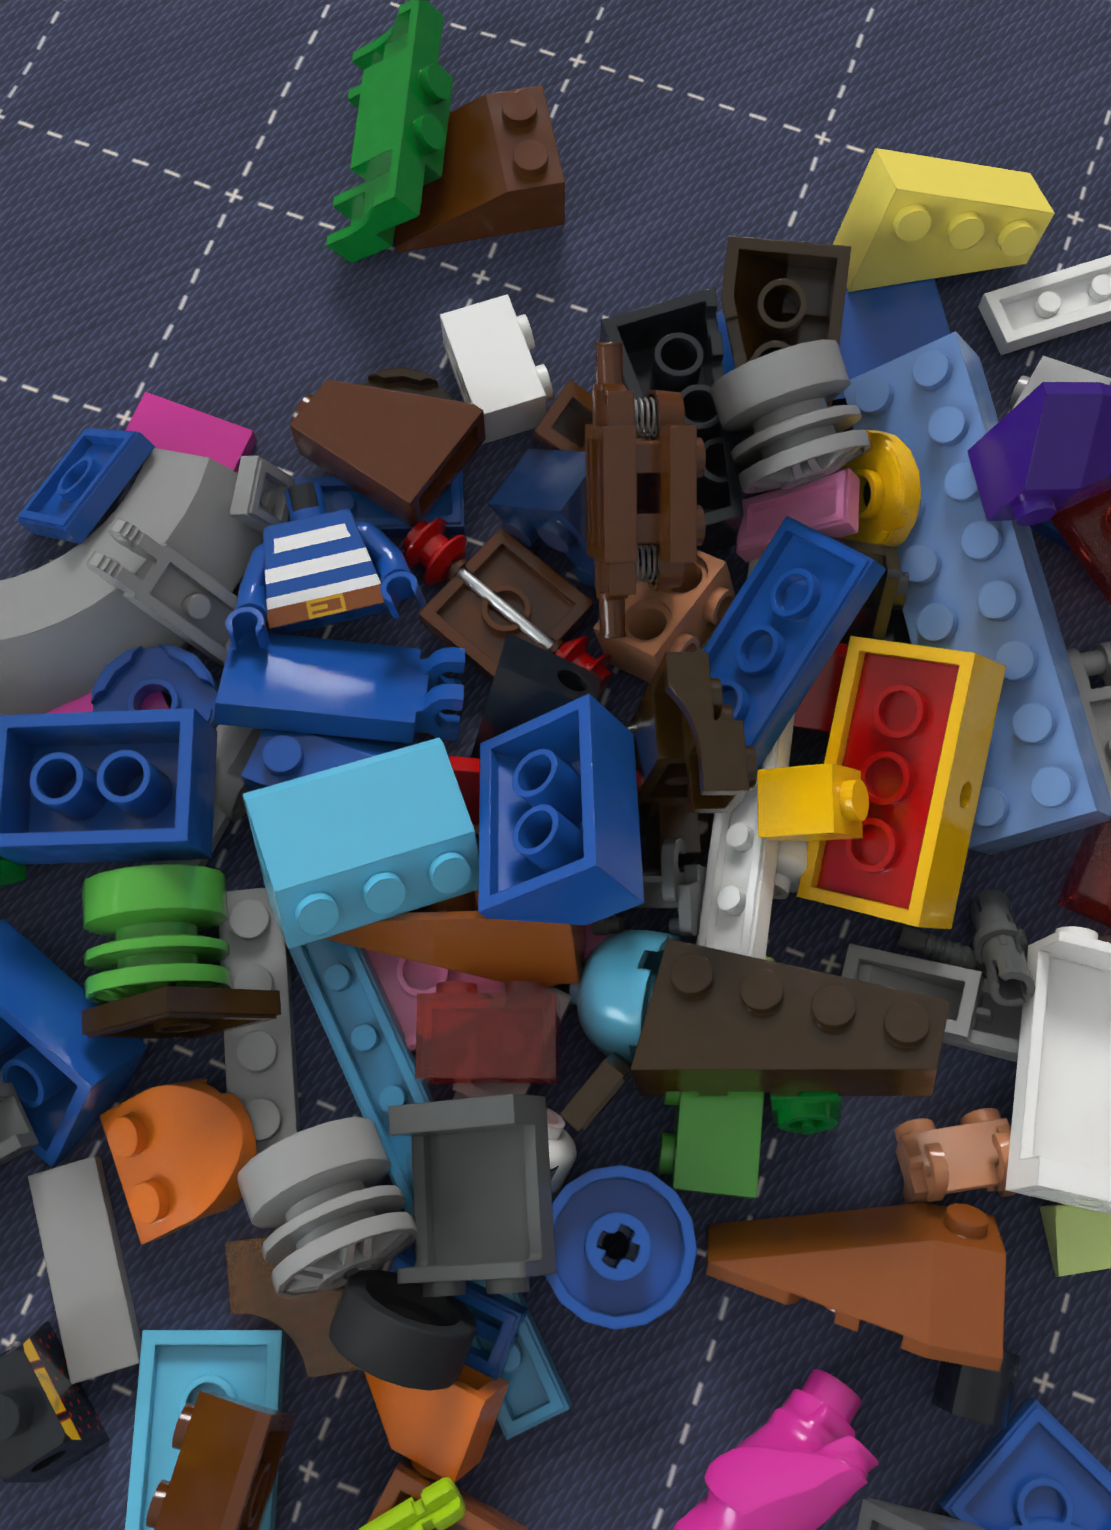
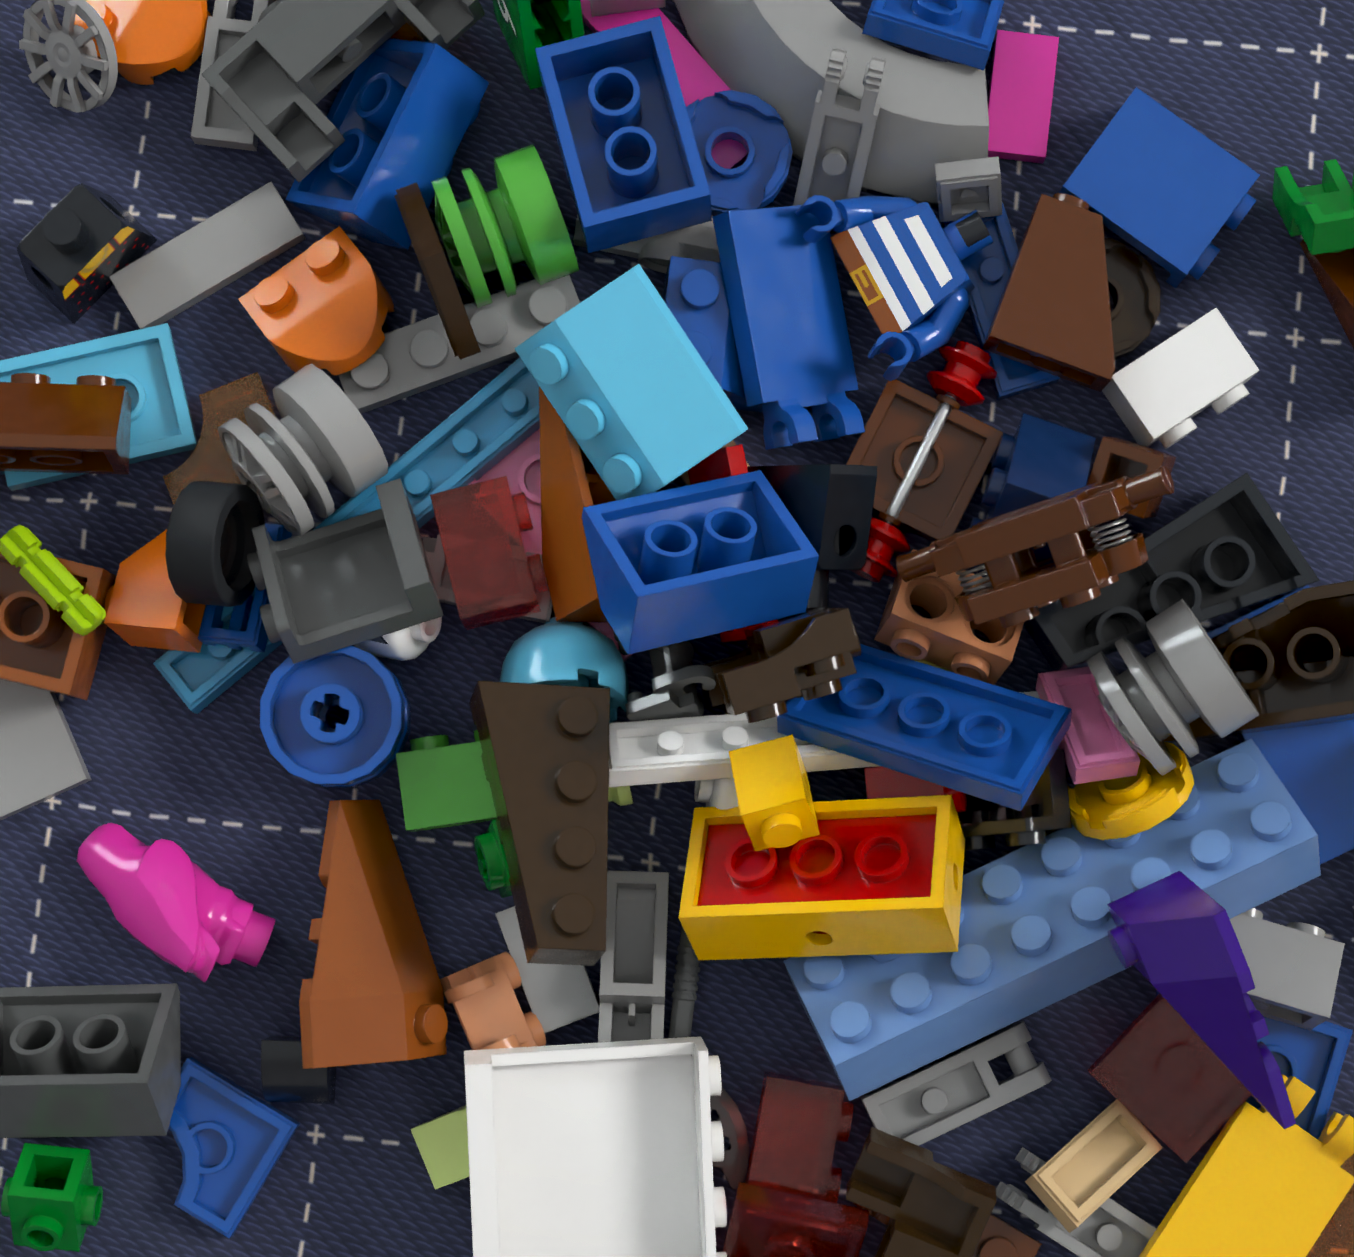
camera: 75 degrees right, 10 degrees up
(309, 332) = (1163, 186): none -> blue panel
(597, 1092) = (457, 660): dark brown tile -> none
(955, 1093) = (554, 991): none -> light grey tile
(1001, 948) = (695, 1012): dark grey pin -> none

